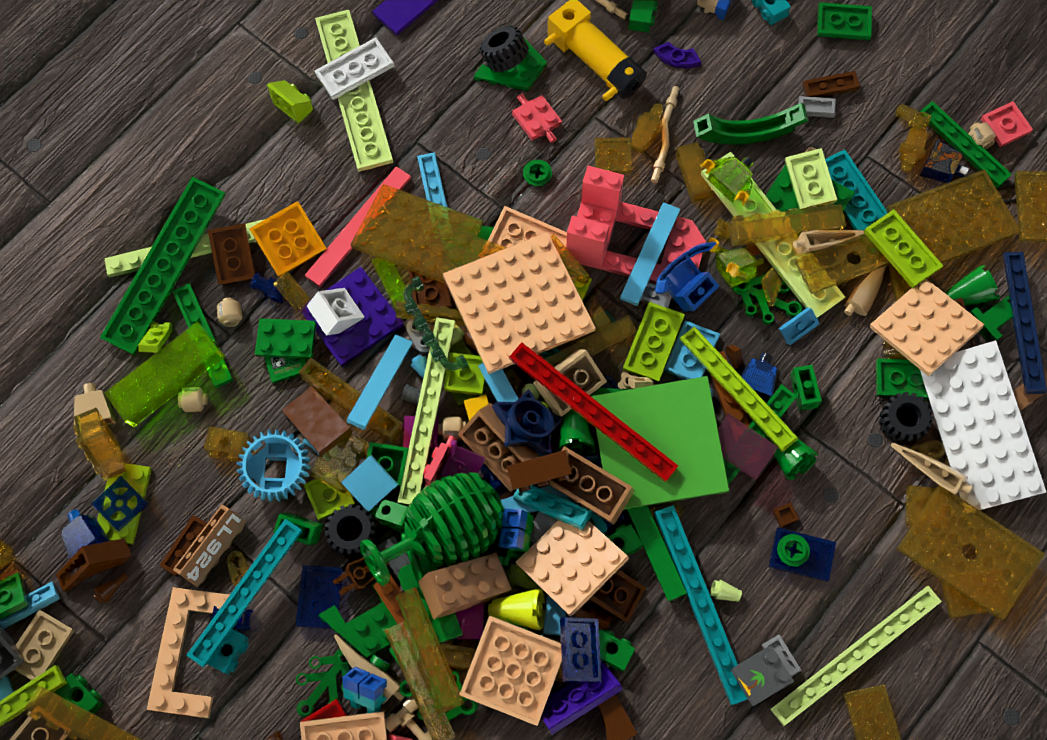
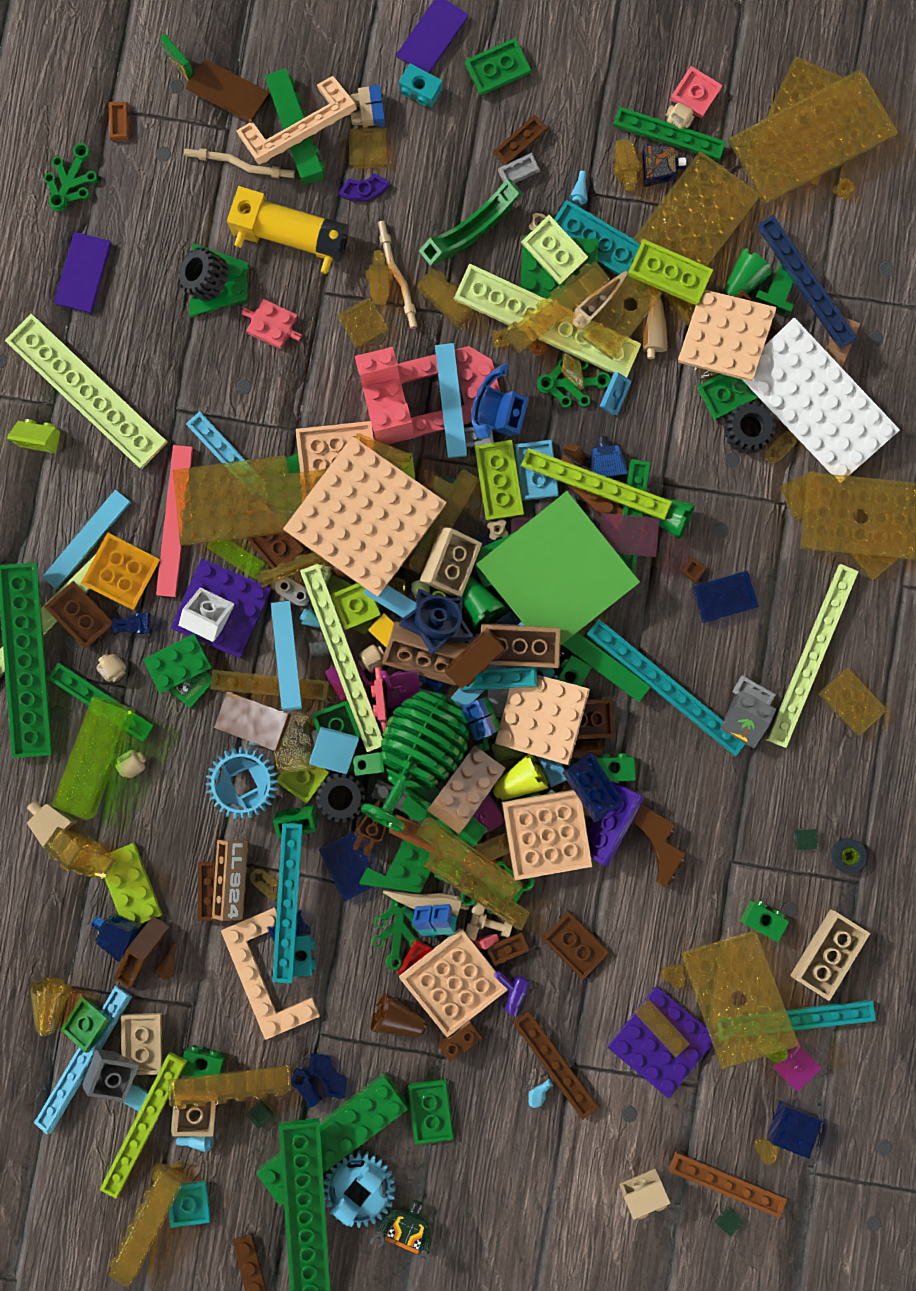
camera: 30 degrees left, 15 degrees up
(98, 503) = (111, 900): piece -> none
(155, 337) = (62, 730): lime plate -> none
(219, 437) = (175, 785): clear yellow brick -> none
(277, 201) = (86, 539): none -> medium azure tile
(292, 291) = (156, 617): clear yellow slope -> none
(354, 68) = (75, 371): white tile -> none
(379, 662) = (432, 890): green tile -> none
(428, 337) = (305, 593): clear green bar -> none
(531, 167) = (296, 376): green gear -> none
(593, 412) = (488, 580): red plate -> none
(639, 382) = (510, 526): tan plate -> none
(699, 28) = (368, 148): none -> clear yellow plate
(724, 591) = (678, 665): yellowish green cone -> none
(731, 177) = (485, 290): clear neon green torso -> none
(736, 264) = (531, 367): clear neon green torso -> none
(801, 546) = (721, 591): green gear -> none
(805, 387) = (651, 448): green brick -> none
(859, 150) = (579, 193): none -> medium azure cone
(915, 118) = (615, 133): clear yellow bar -> none
(937, 471) = (800, 461): tan piece -> none

